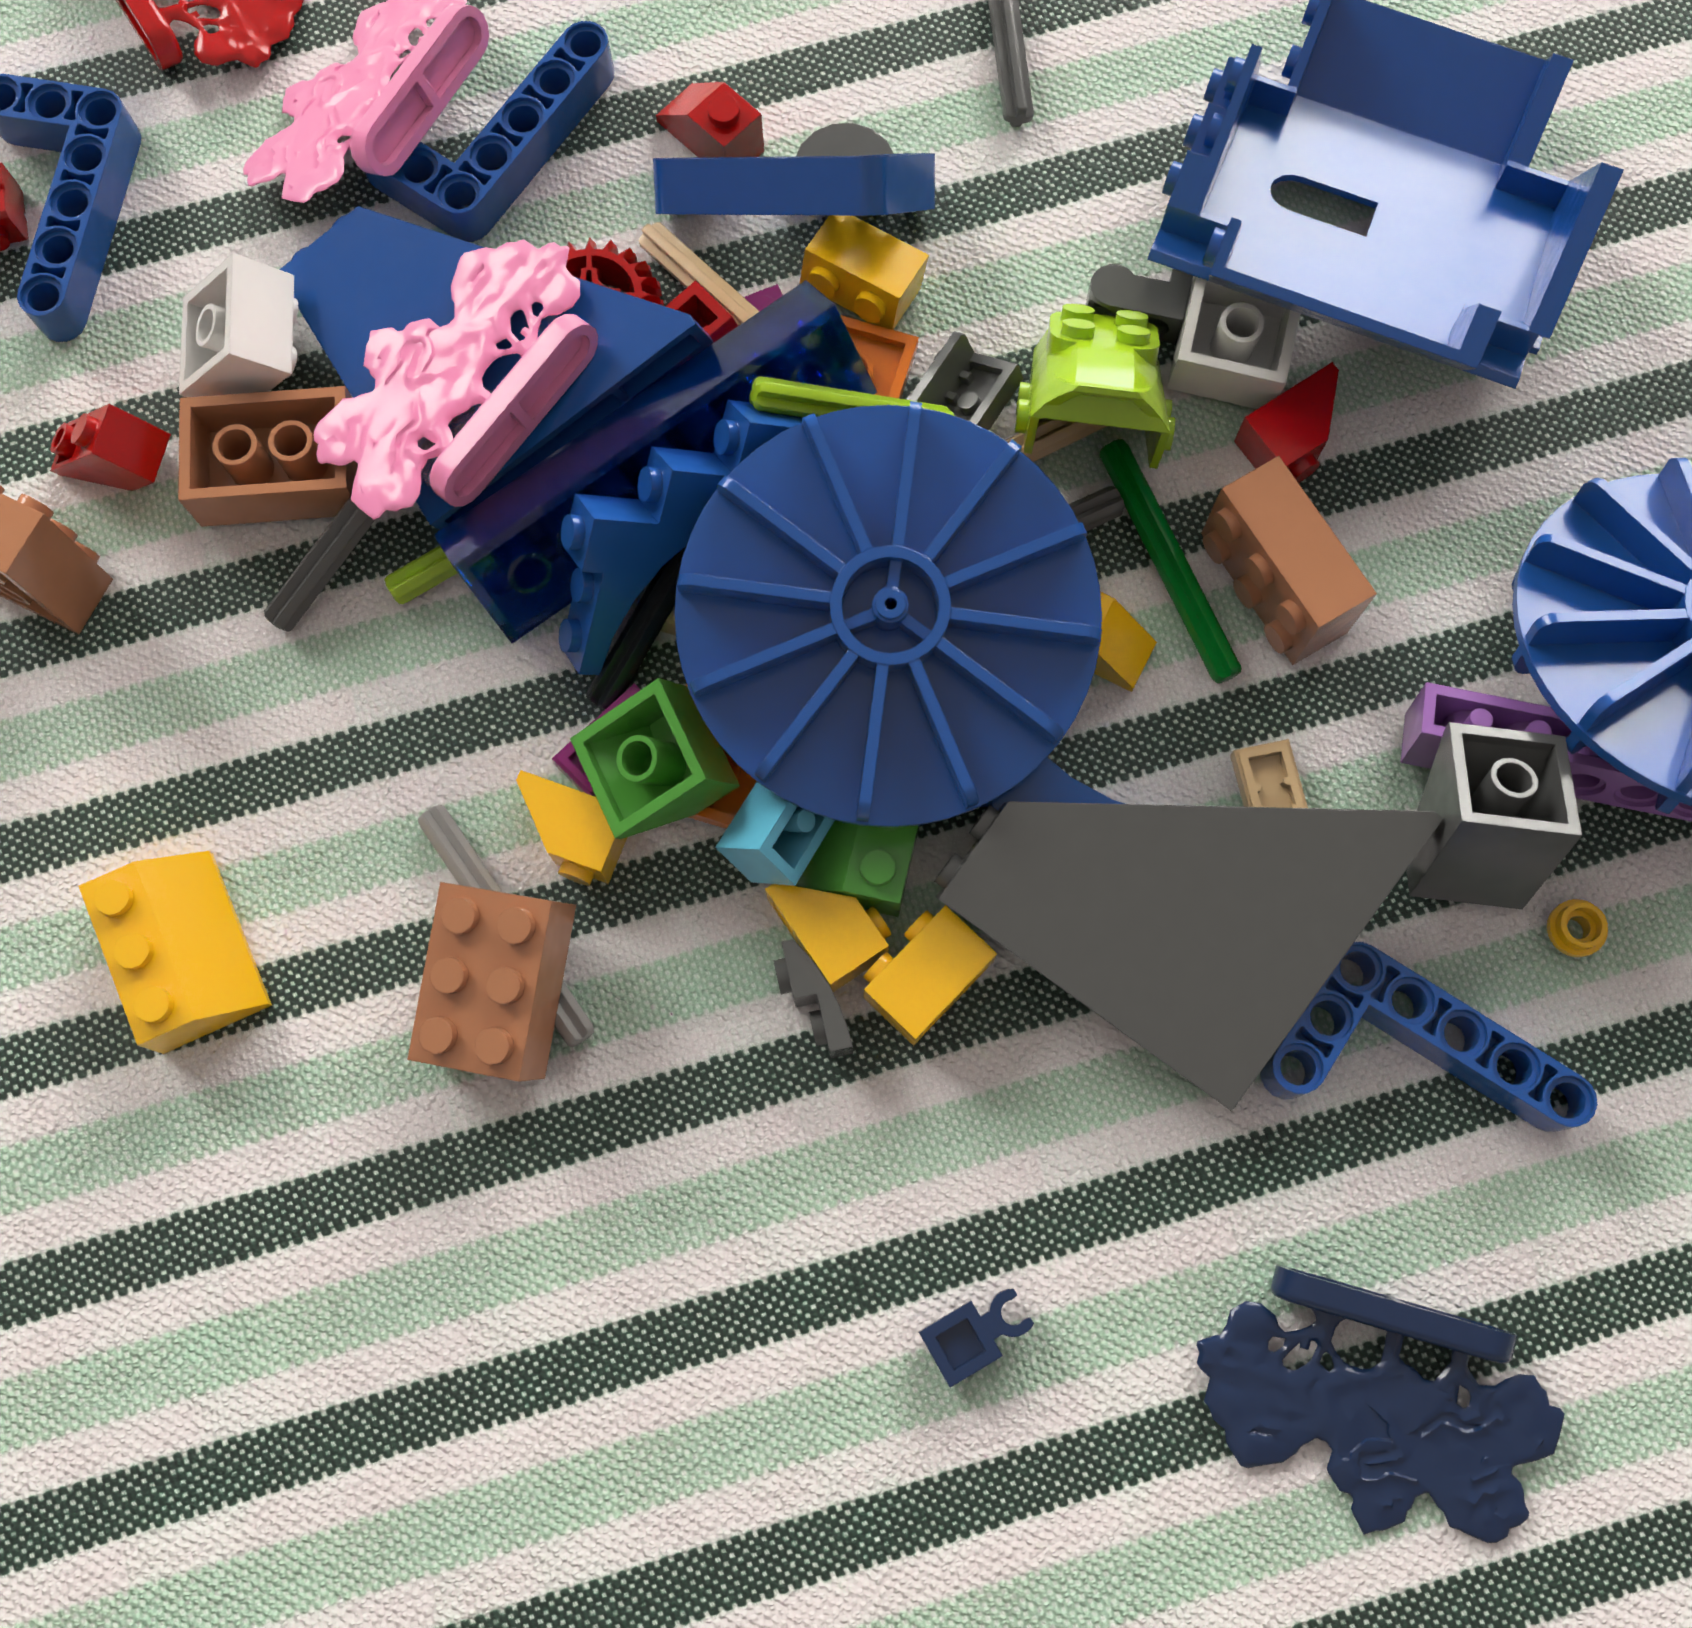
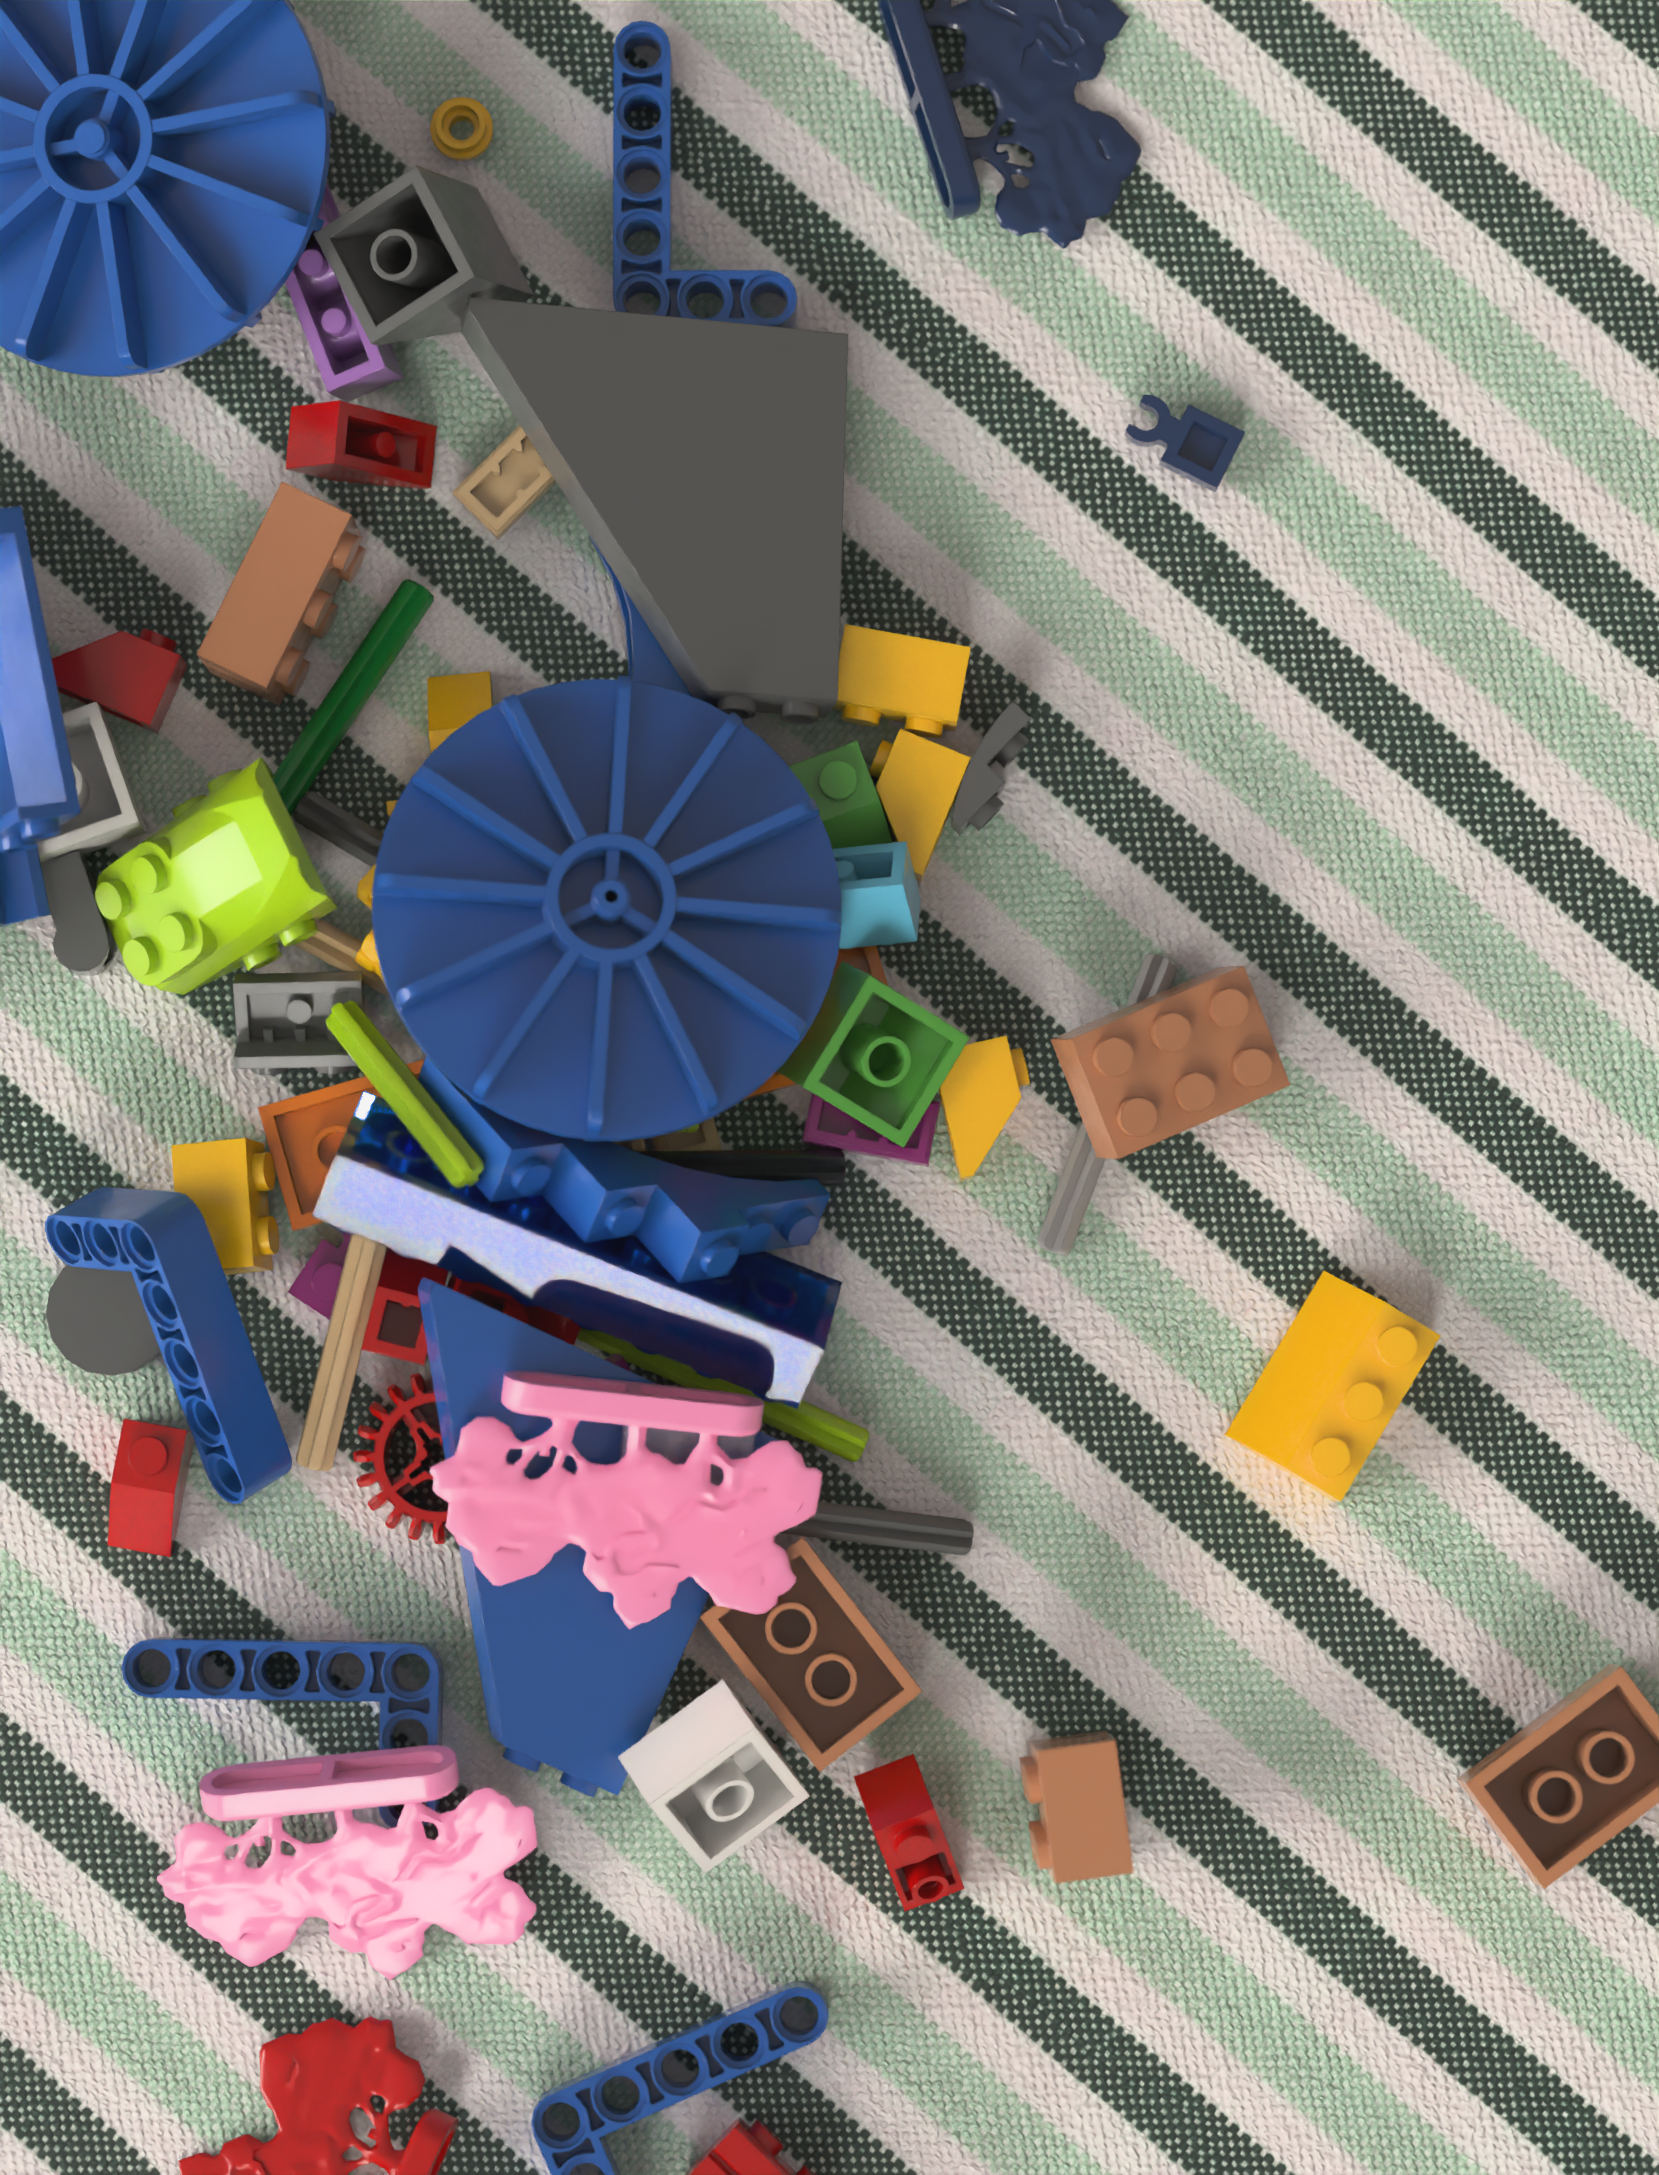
camera: 125 degrees left, 10 degrees up
(1364, 698) = (360, 445): none -> red slope

